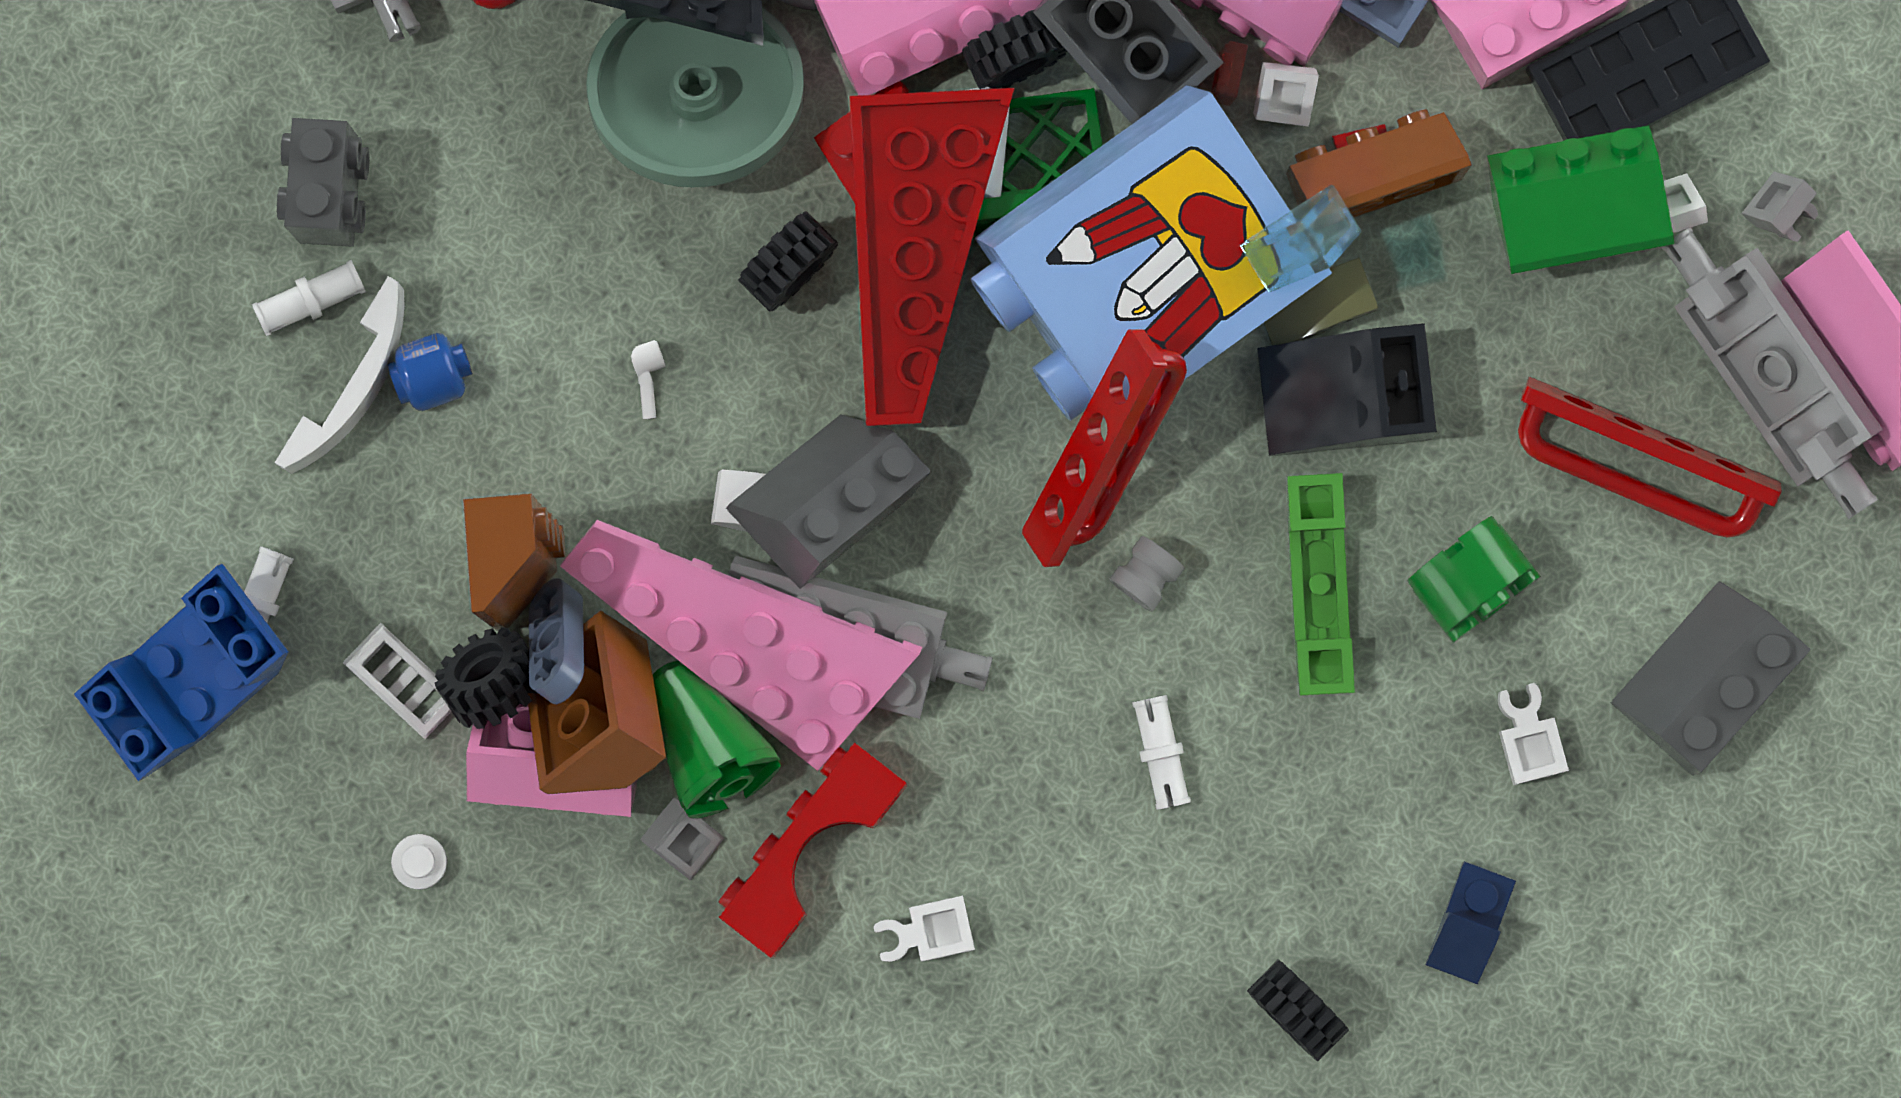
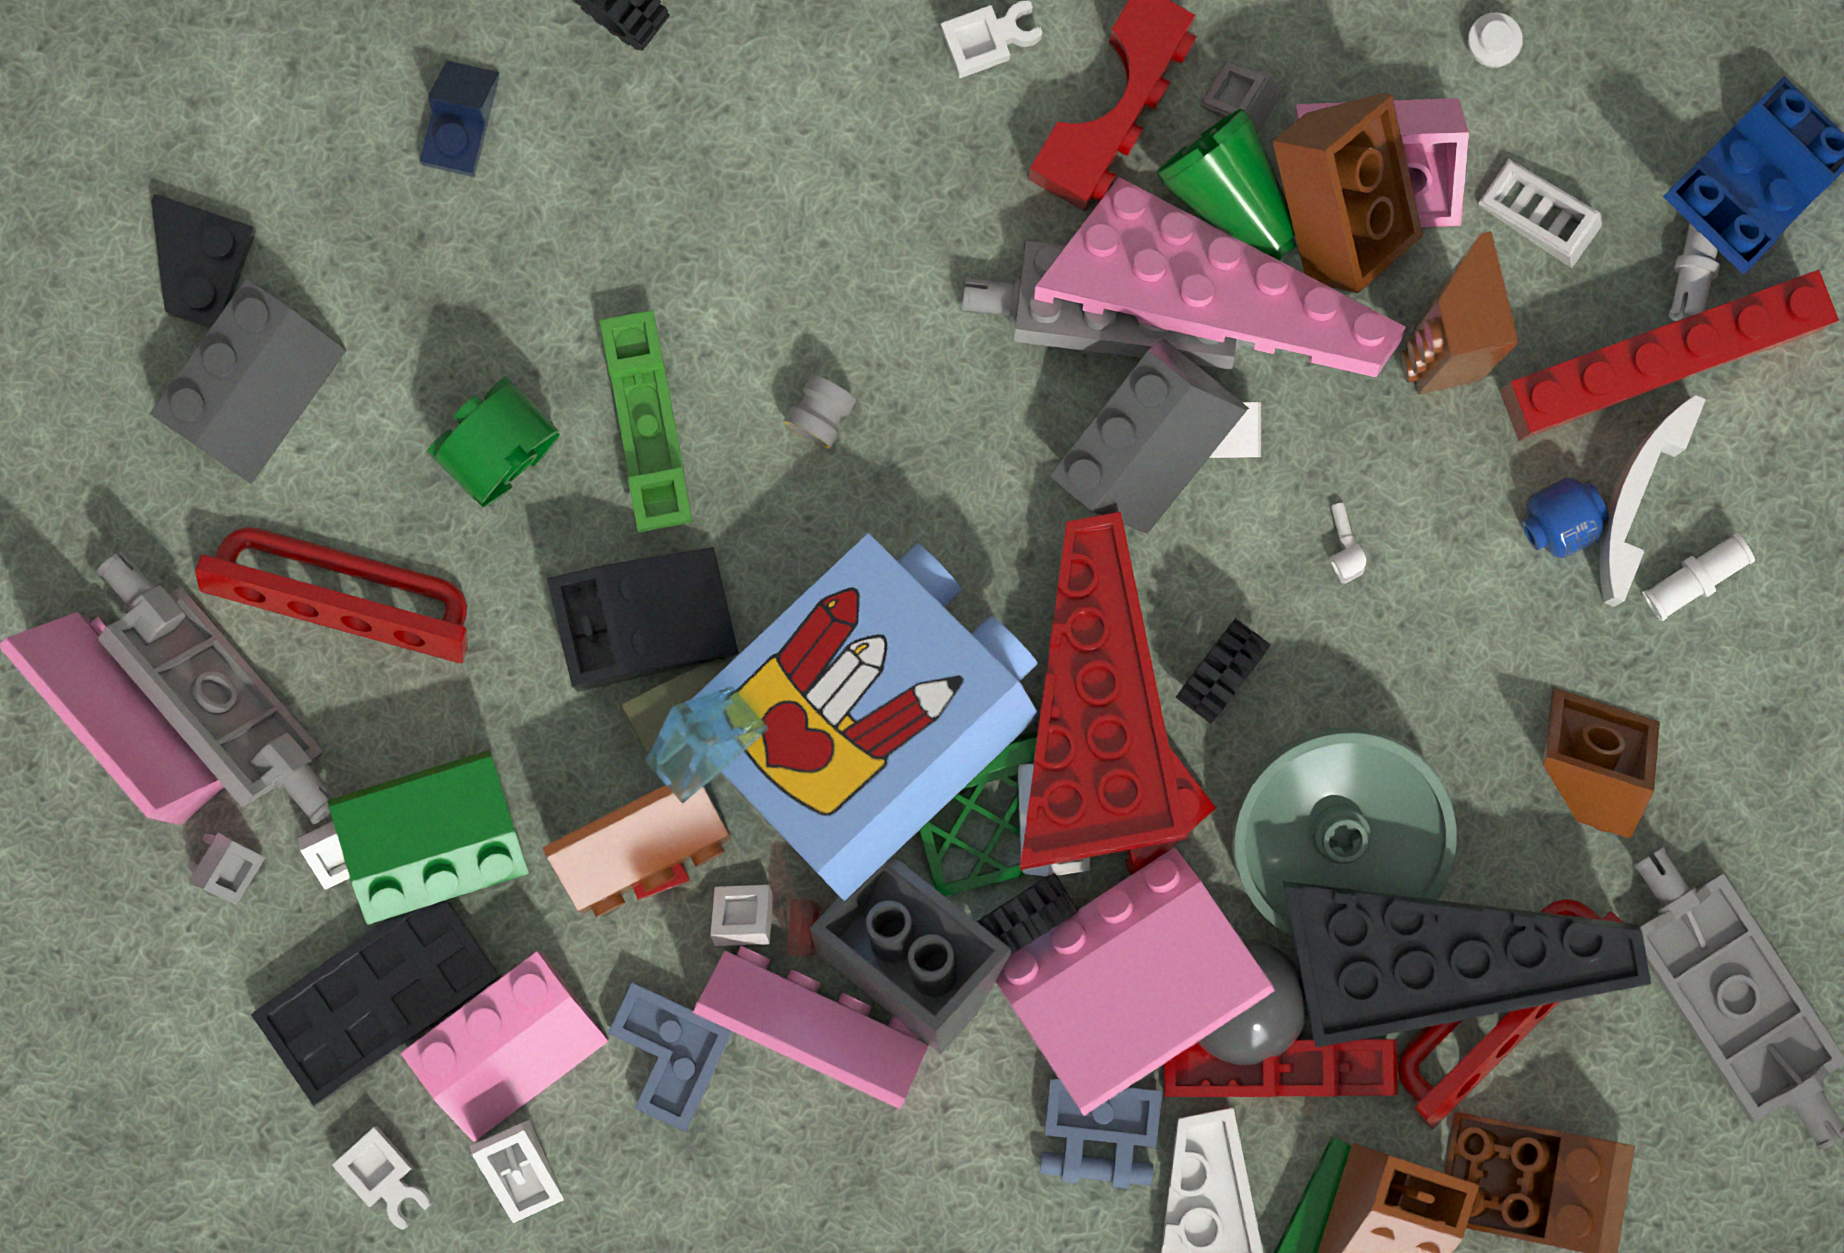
camera: 160 degrees right, 0 degrees up
(314, 509) = (1668, 354): none -> red arch
(322, 182) = (1706, 686): dark grey brick -> none
(434, 132) = (1601, 761): none -> dark orange slope
(486, 678) = (1440, 203): black tyre -> none
(556, 641) = (1397, 255): sand blue beam -> none
(1109, 464) = (839, 567): red piece -> none
(1161, 752) = (783, 240): white pin -> none
(1533, 745) = (417, 296): white plate -> none
(1748, 811) = (198, 259): none -> black wing

